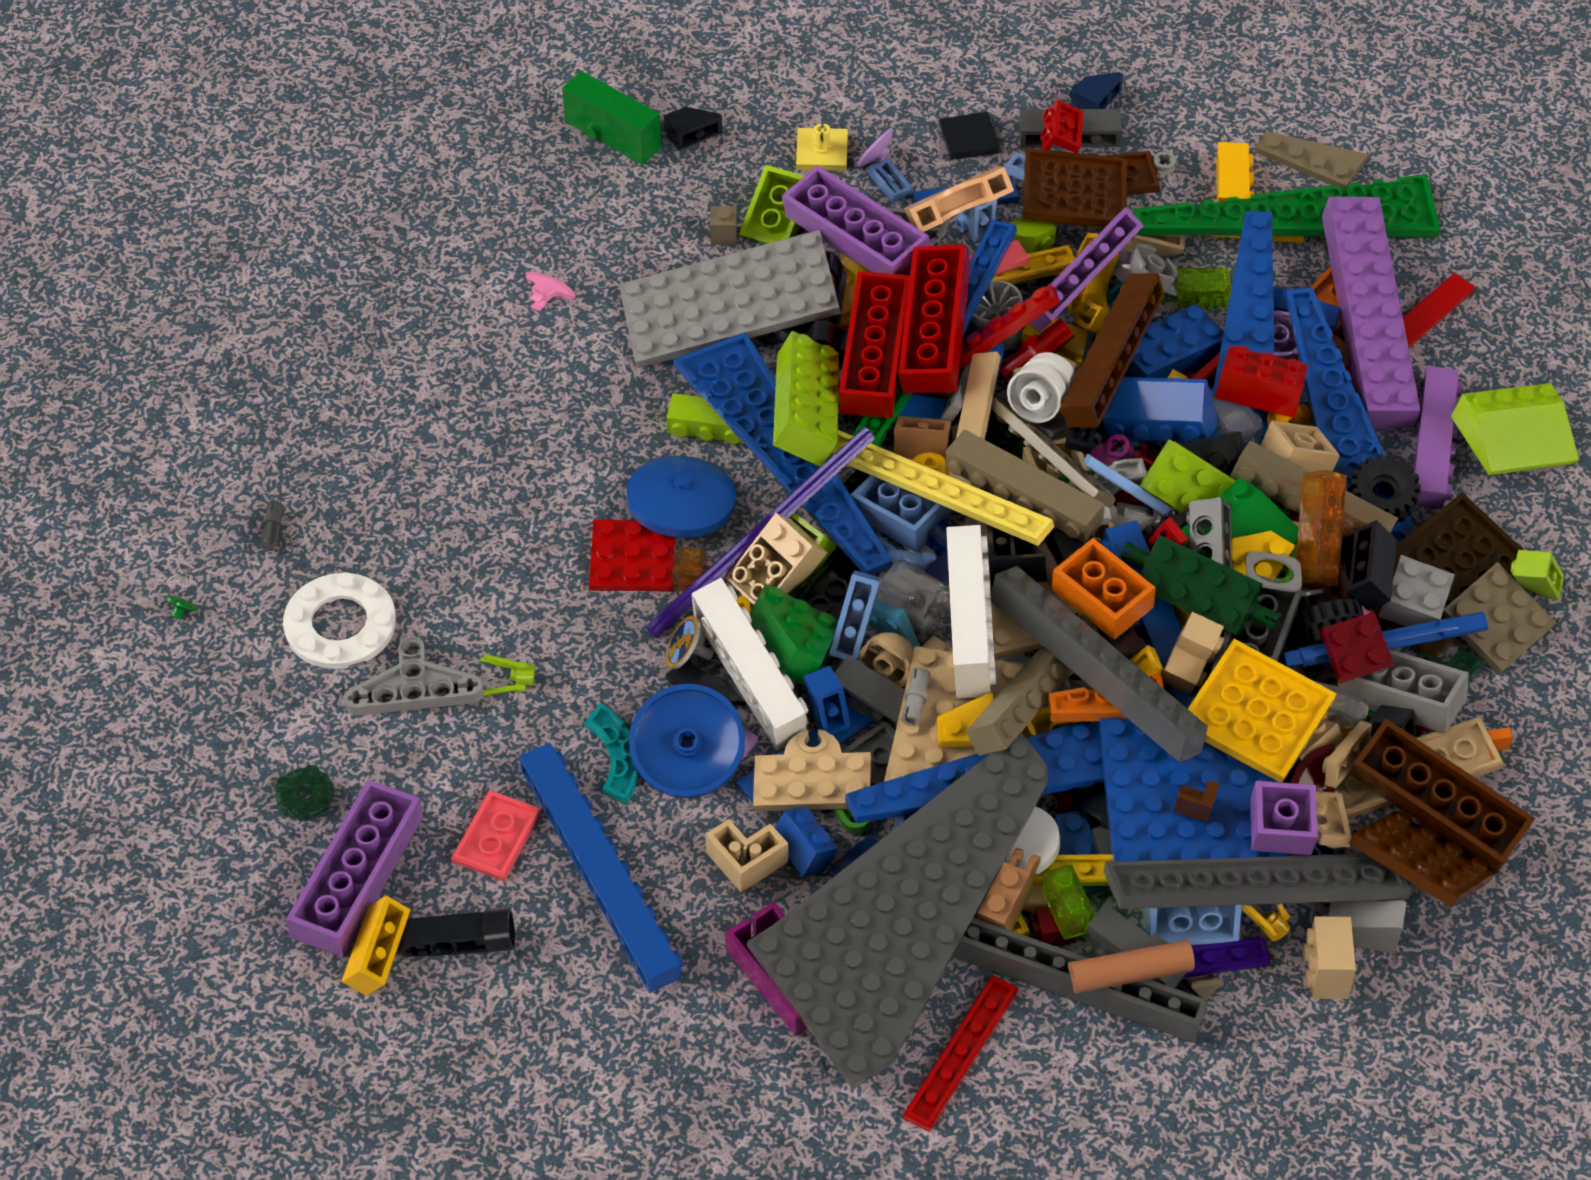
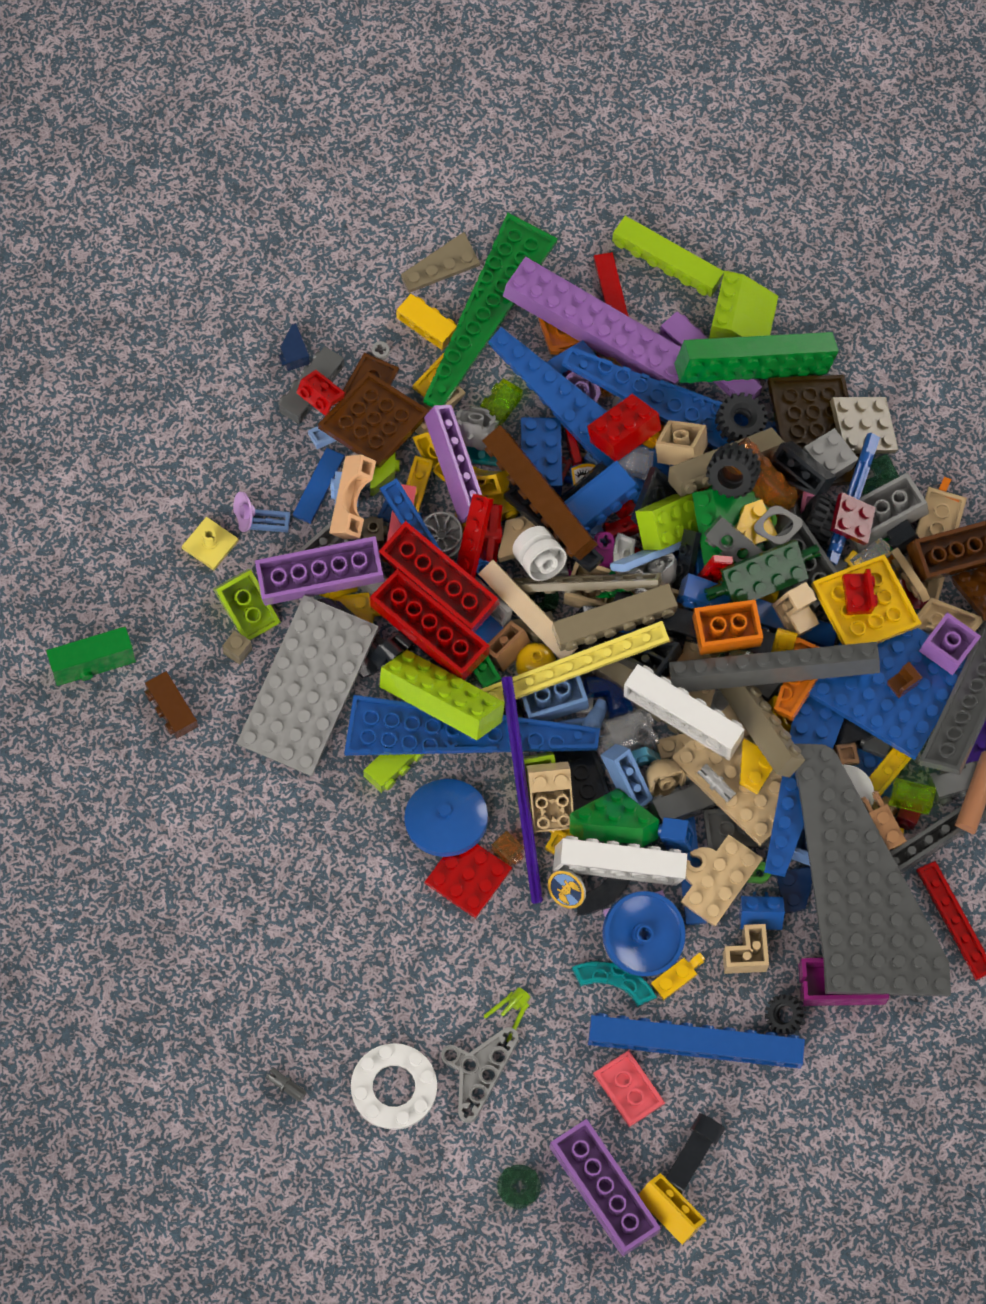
camera: 60 degrees left, 15 degrees up
(180, 606) = (313, 1179): green plant -> none
(547, 288) = (202, 789): bright pink piece -> none
(616, 210) = (170, 705): none -> reddish brown brick
(667, 808) = (677, 976): none -> yellow plate
(691, 126) = (130, 611): black slope -> none
(698, 931) = (797, 1017): none -> black tyre
(968, 135) = (267, 448): black tile -> none
(1068, 815) = (847, 753): none -> medium nougat tile
(1259, 688) = (859, 593): none -> red bracket
(1293, 484) = (737, 457): none -> black tyre
(1469, 457) = (755, 357): none -> green brick
(1518, 327) = (667, 256): none -> lime brick
(1538, 573) = (852, 382): lime slope -> none

